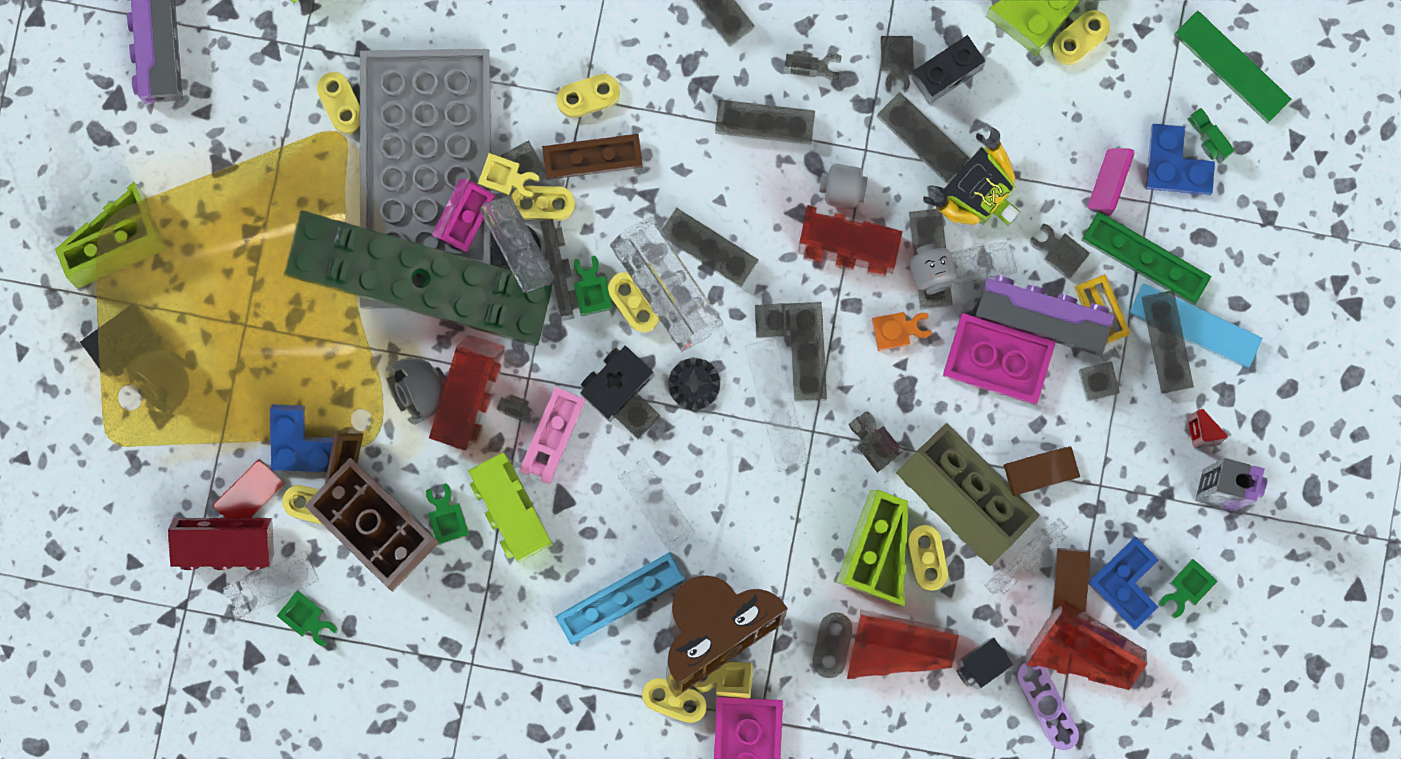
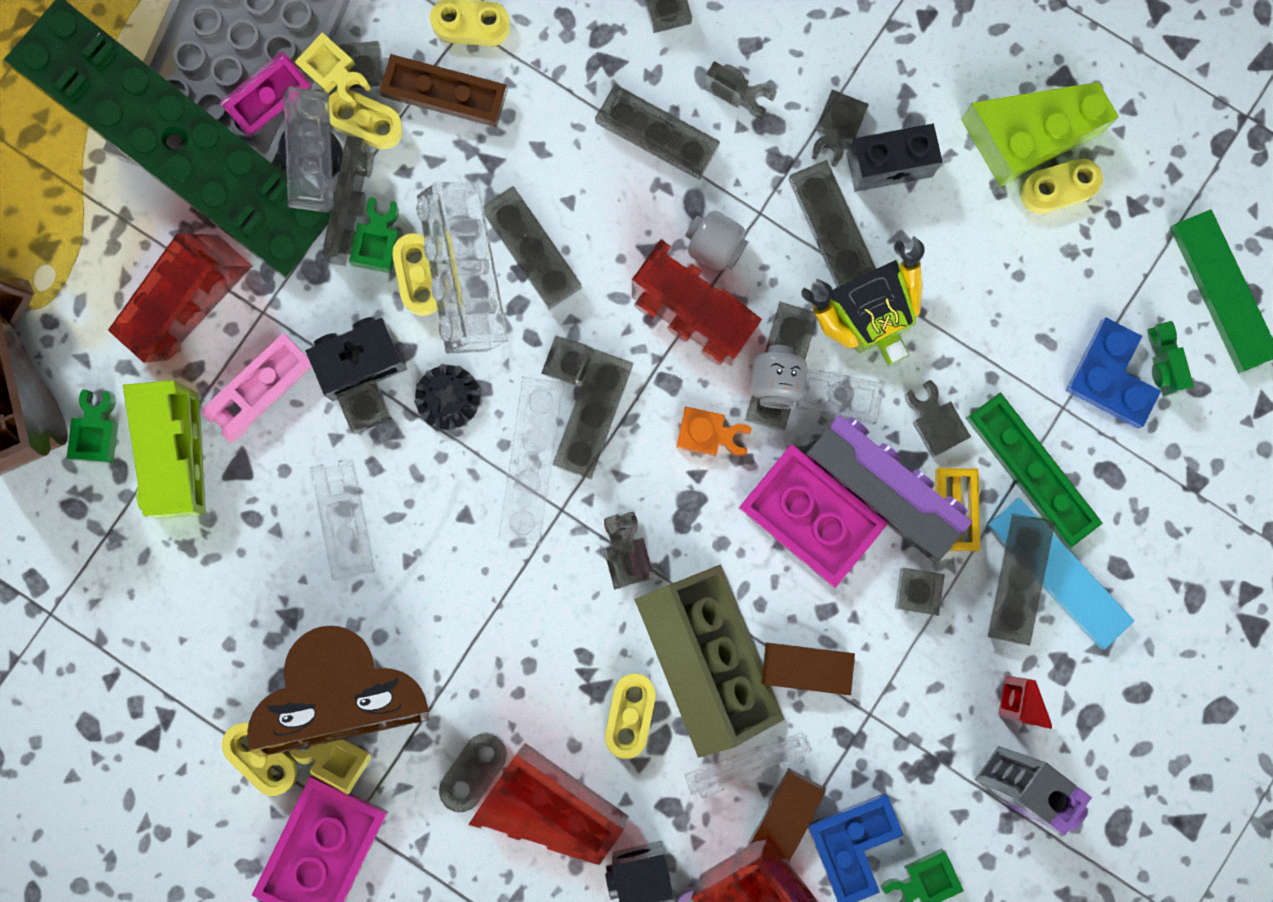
camera: 15 degrees right, 0 degrees up
(416, 387) = (123, 264): dark grey cylinder -> none
(516, 408) = (228, 339): clear smoke plate -> none
(620, 598) = (252, 610): medium azure tile -> none
(877, 549) = (572, 683): lime wedge -> none
(1111, 180) = (1030, 362): dark pink slope -> none

